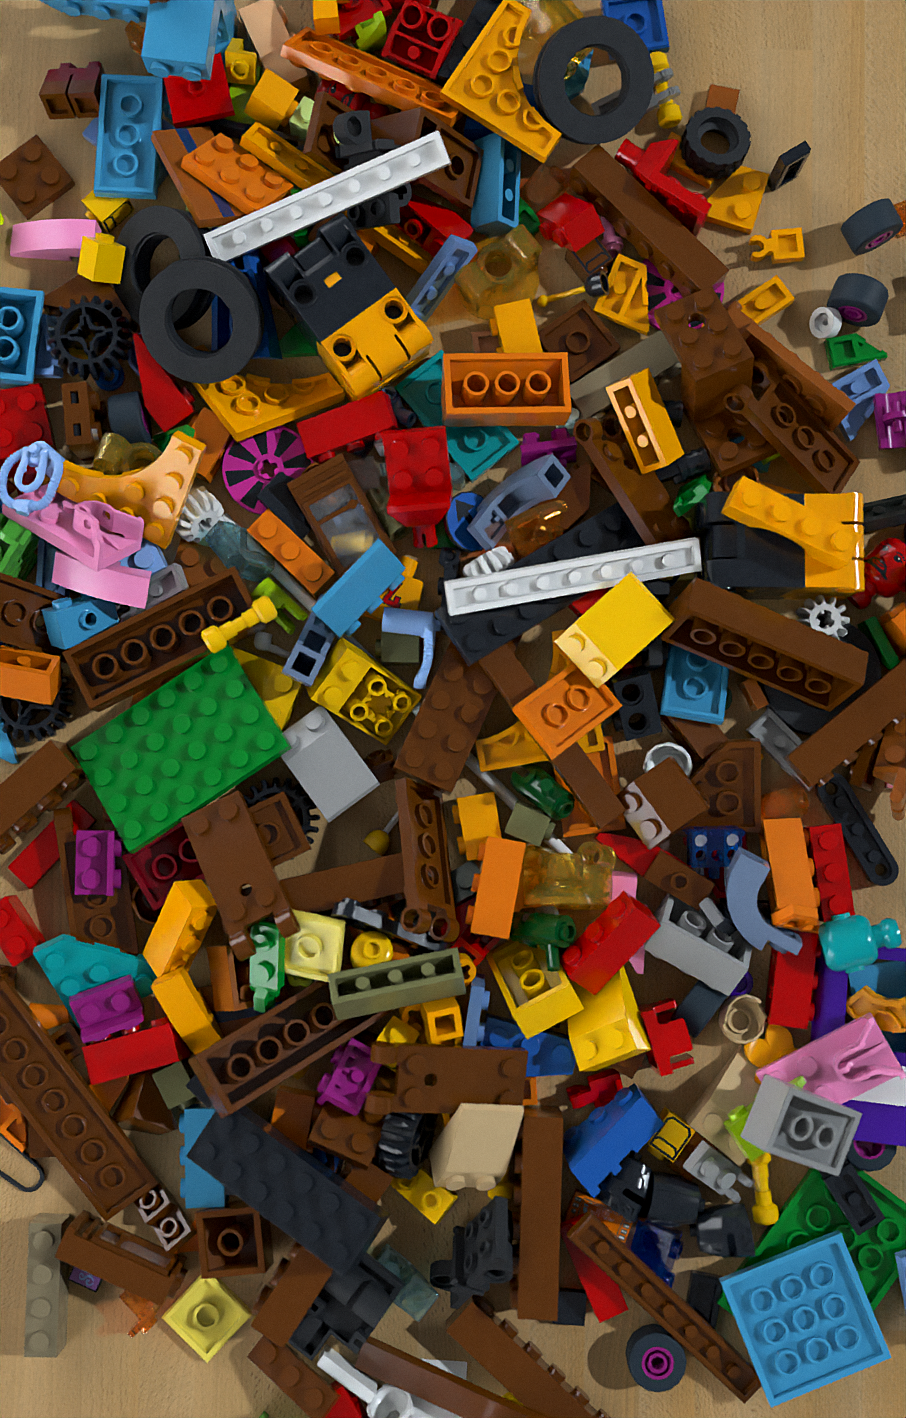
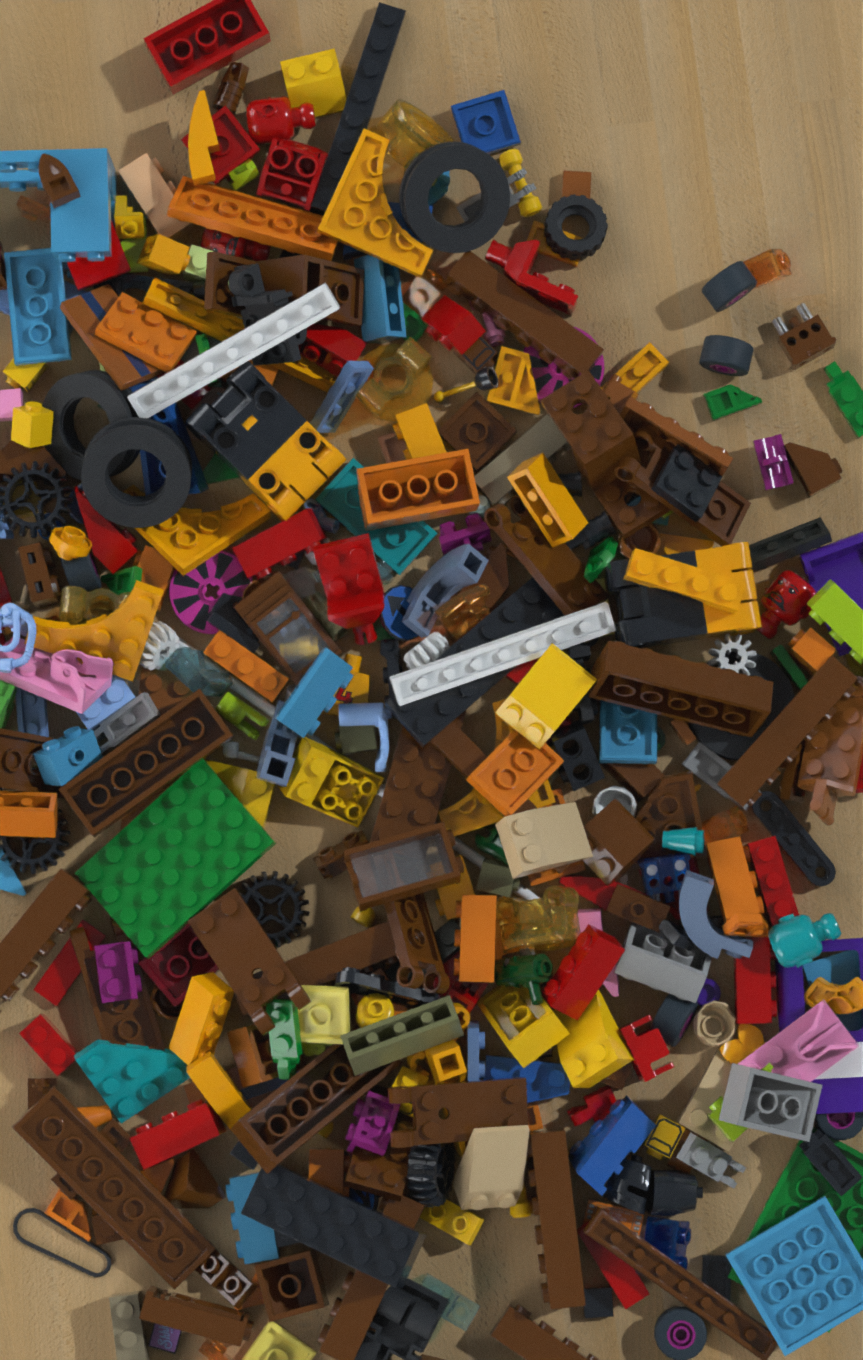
camera: 10 degrees left, 0 degrees up
(108, 1009) = (147, 1100): magenta bracket -> none
(113, 583) = (97, 721): bright pink slope -> none
(119, 387) = (70, 542): none -> light orange plate
(172, 1082) = (218, 1159): olive brick -> none
(261, 610) = (195, 755): yellow piece -> none
(279, 829) = (276, 916): reddish brown plate -> none
(327, 763) = (307, 852): light grey slope -> none
(427, 794) = (403, 865): none -> door
(479, 1255) = (508, 1264): black plate -> none
(587, 788) = (543, 839): none -> tan slope
(724, 1231) = (723, 1212): black helmet -> none
(738, 200) = (604, 275): light orange wing -> none
(740, 813) = (684, 840): none -> teal cone
(764, 1210) = (758, 1189): yellow piece -> none
(782, 246) = (652, 312): light orange plate -> none
(788, 166) = (645, 242): black tile -> none
(799, 424) = (686, 483): none -> black plate
(825, 322) = (701, 379): white tile -> none
(860, 388) = (738, 440): medium blue wing -> none

